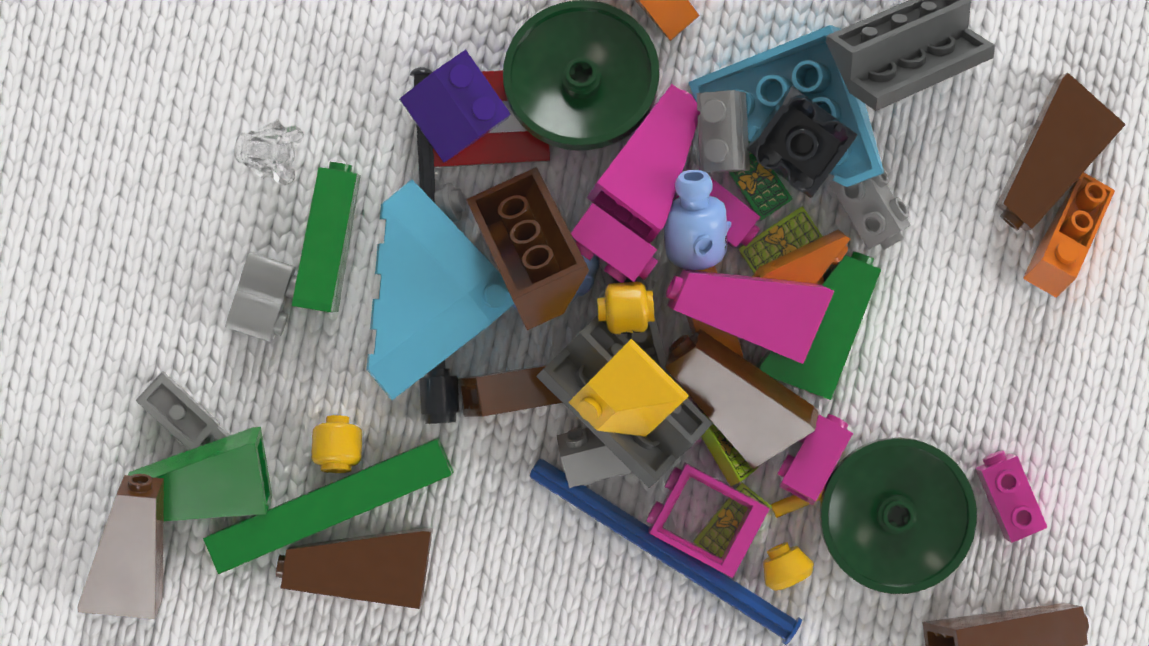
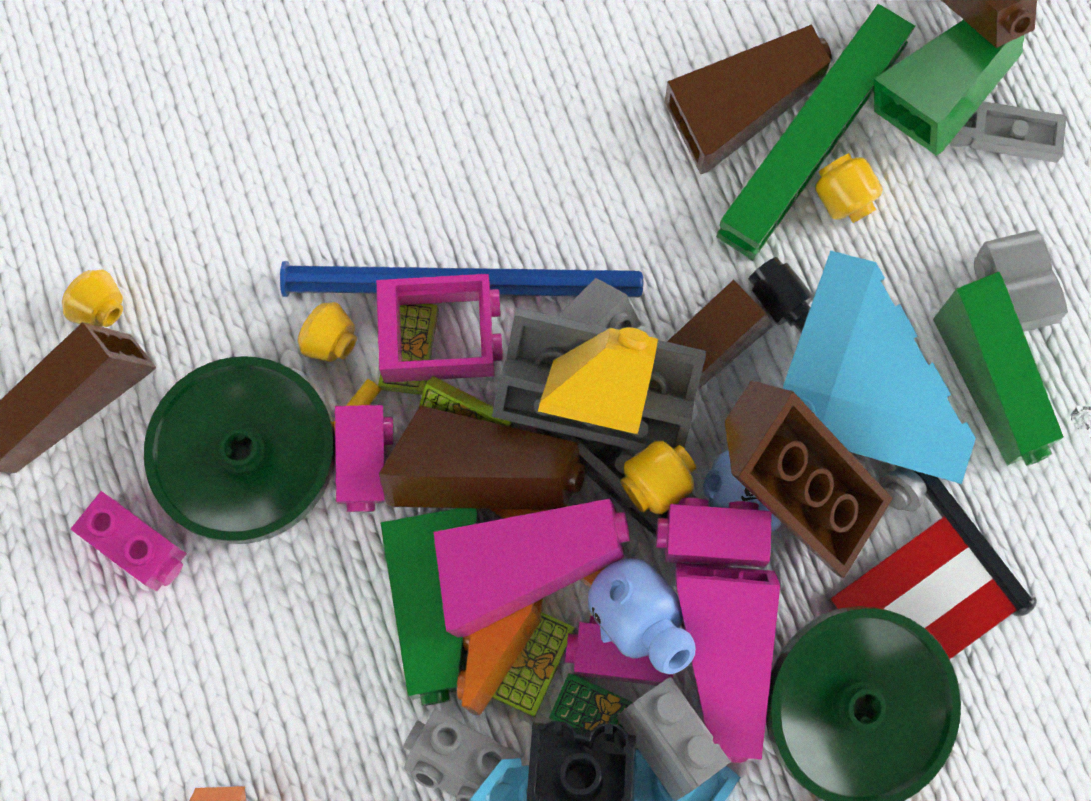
camera: 150 degrees right, 15 degrees down
(455, 106) = (971, 589): dark purple slope -> none

